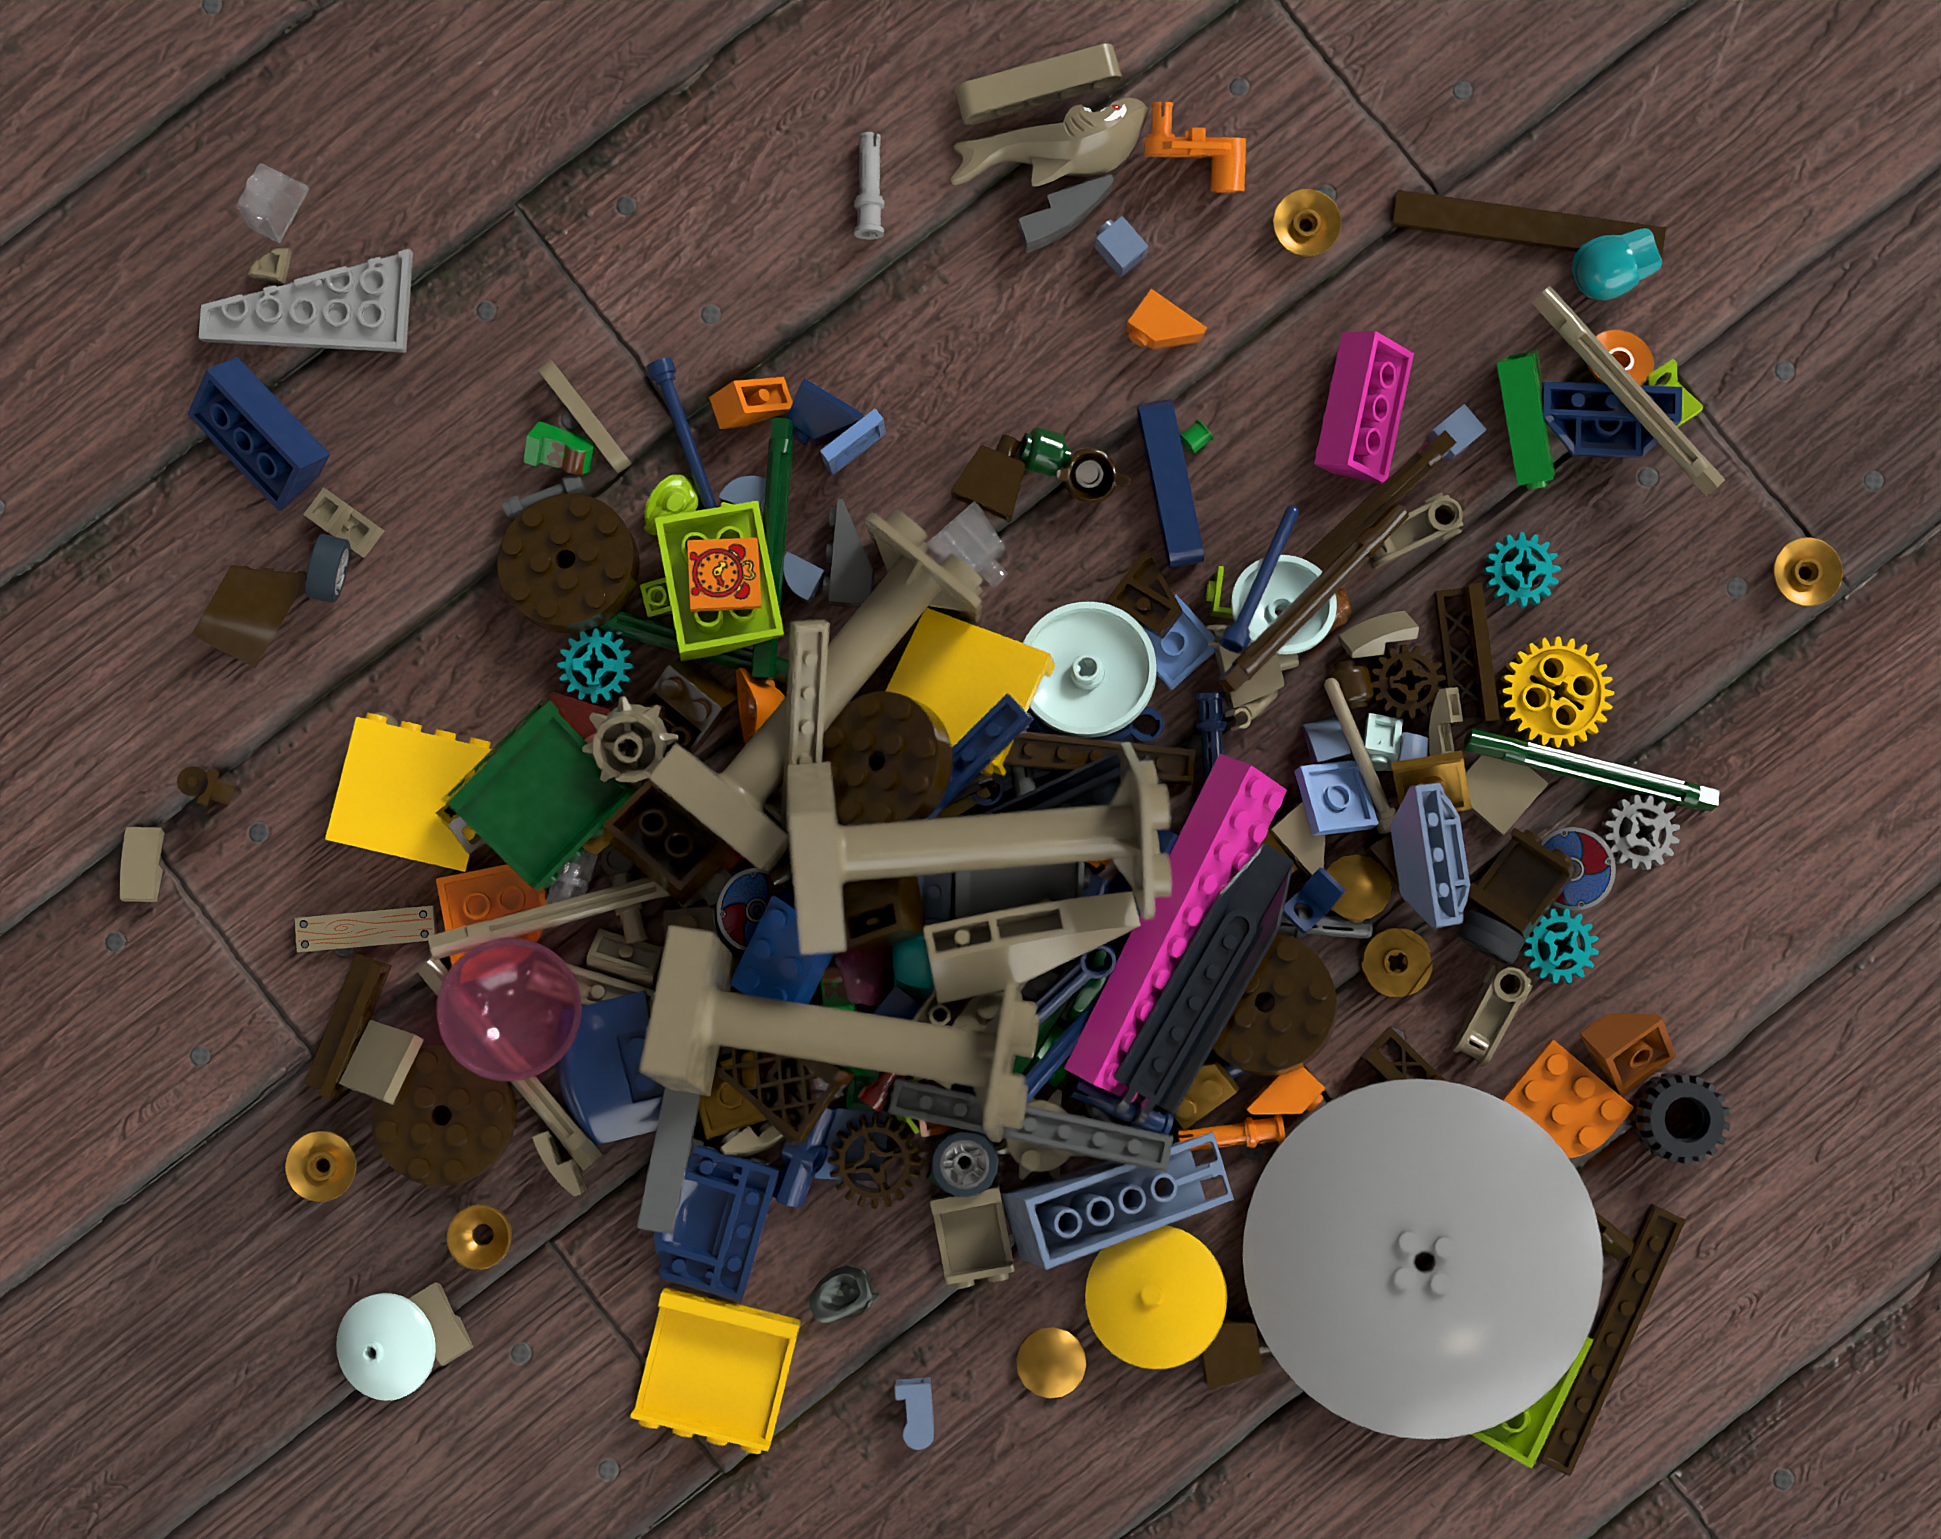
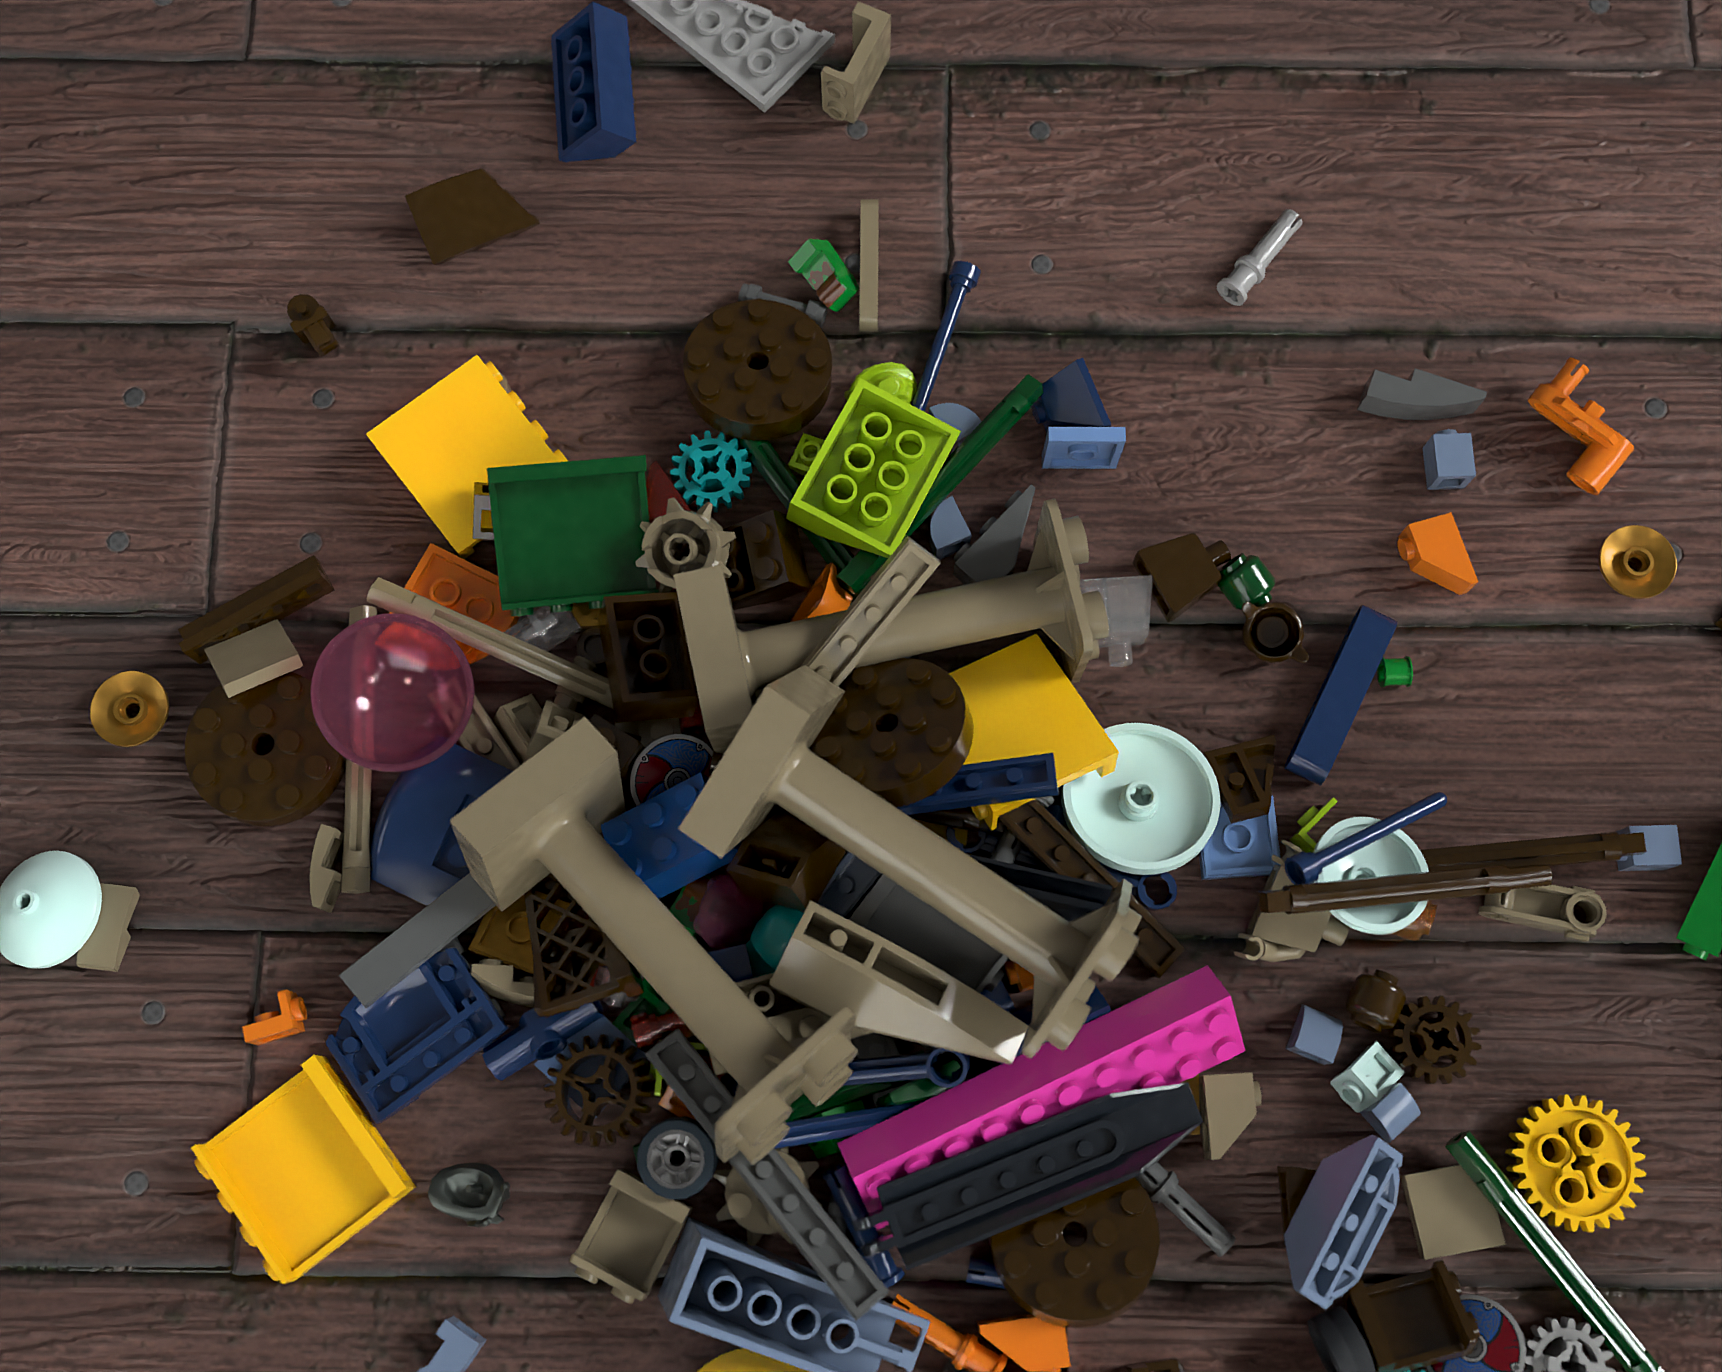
camera: 40 degrees right, 10 degrees down
(140, 864) = (203, 351): dark tan slope -> none
(327, 568) = (557, 226): black wheel -> none
(343, 522) = (602, 206): dark tan slope -> none
(365, 928) = (337, 539): dark tan tile -> none
(445, 233) = (848, 91): none -> dark tan panel
(464, 1245) = (187, 872): pearl gold piece -> none
(613, 1296) = (273, 1026): none -> orange bracket
(644, 946) = (551, 724): none -> dark tan slope
(724, 574) = (881, 467): orange tile -> none
(750, 401) = (1017, 351): orange slope -> none
(1038, 84) = (1475, 277): dark tan beam -> none
(1079, 147) = (1472, 347): dark tan piece -> none
(1207, 1092) = (951, 1276): pearl gold wing -> none
(1211, 728) = (1216, 936): dark blue pin -> none
(1318, 896) = (1201, 1174): dark blue bracket -> none
(1335, 798) = (1287, 1095): medium blue tile -> none
(1364, 407) = (1575, 759): dark pink slope -> none
(1365, 887) = (1243, 1196): pearl gold dish -> none
(1371, 635) = (1431, 971): dark tan slope -> none
(1384, 812) = (1324, 1144): dark tan piece -> none
(1397, 982) = (1251, 1311): pearl gold plate -> none
(1439, 768) = (1416, 1145): pearl gold plate -> none
(1445, 711) = (1451, 1096): dark tan slope -> none
(1478, 648) = (1525, 1067): dark brown fence -> none
(1521, 584) = (1640, 1018): teal gear -> none

